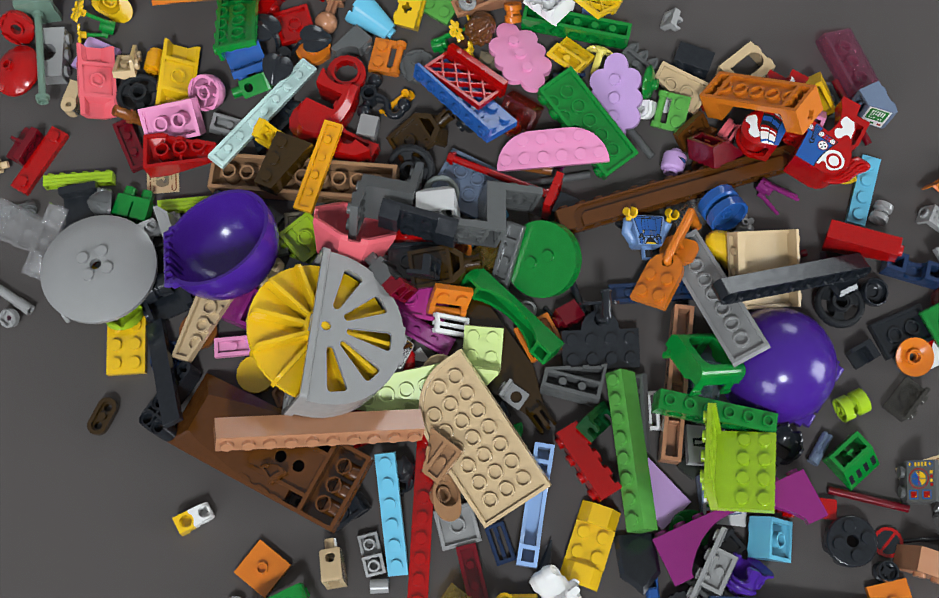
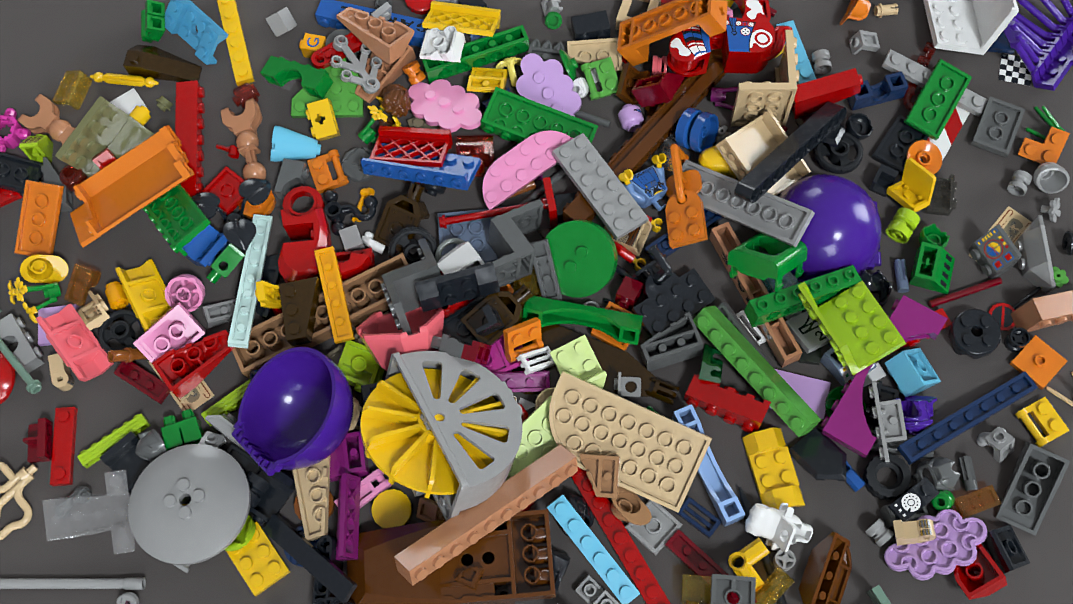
camera: 30 degrees left, 5 degrees down
(135, 31) = (80, 282): none -> clear orange plate
(214, 359) = (348, 517): none -> magenta fence
(383, 142) = (368, 241): none -> white arm
(602, 208) = (600, 186): none -> light grey plate
(604, 265) = (633, 243): none -> torso
(664, 35) = (553, 20): none -> green plate
(791, 213) = (757, 98): none -> tan bracket
(873, 432) = (933, 235): none -> green hair
(885, 379) = (915, 187): none -> yellow bracket

